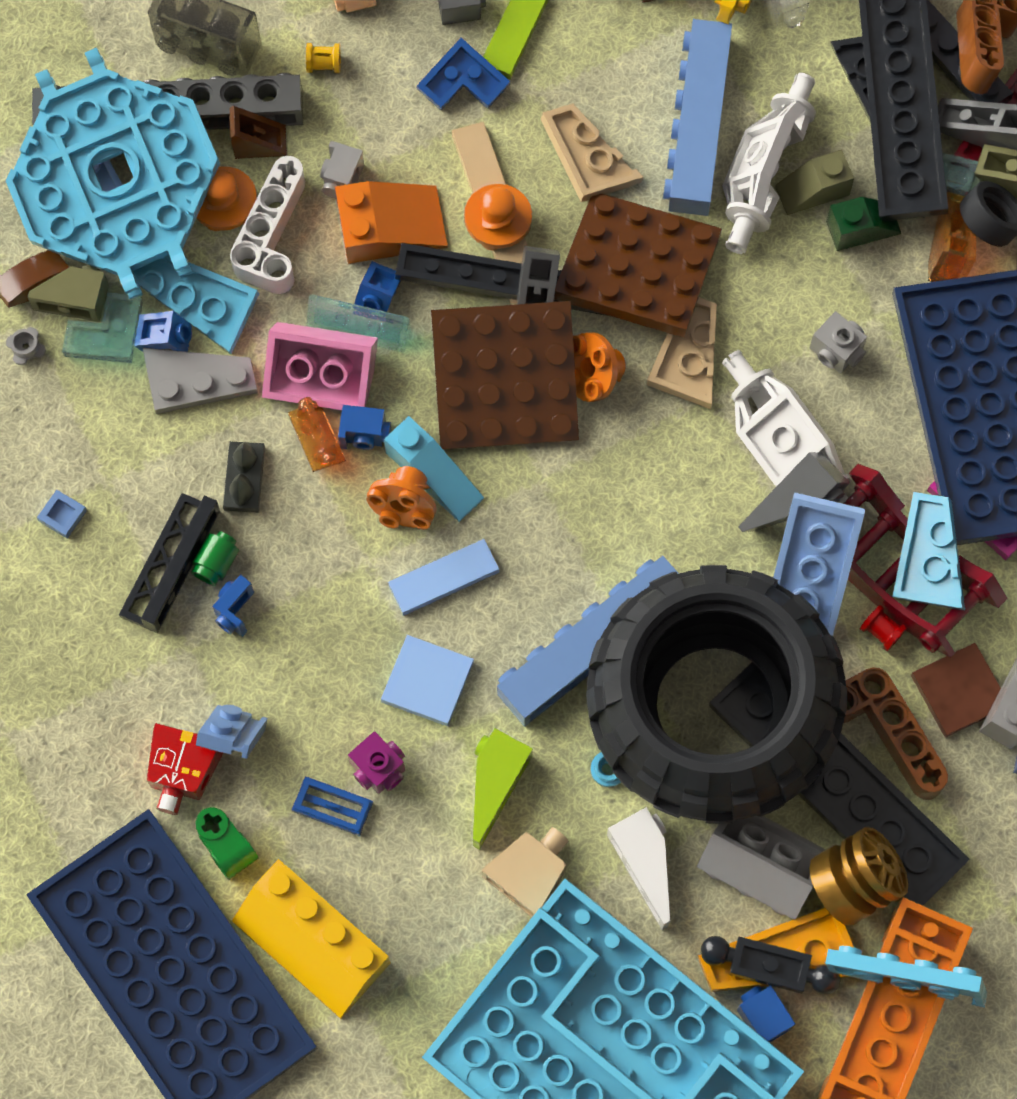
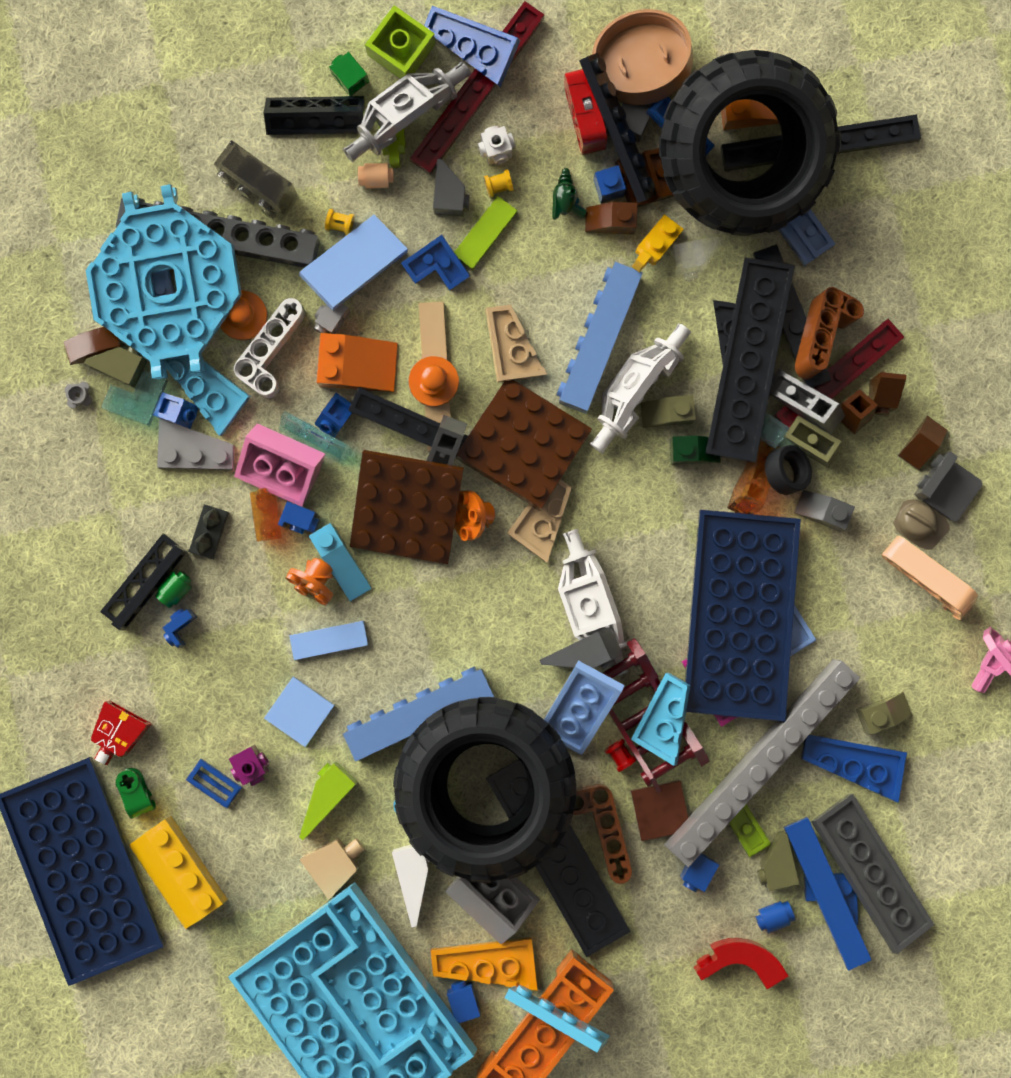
camera: 15 degrees right, 15 degrees up
(62, 514) = (76, 527): medium blue tile -> none
(231, 730) = (155, 720): medium blue plate -> none
(256, 135) = (276, 273): reddish brown slope -> none
(354, 98) = (353, 262): none -> light blue tile
(769, 965) = (472, 971): black plate -> none
(839, 343) = (641, 545): light grey brick -> none
(858, 876) = (549, 931): pearl gold wheel -> none

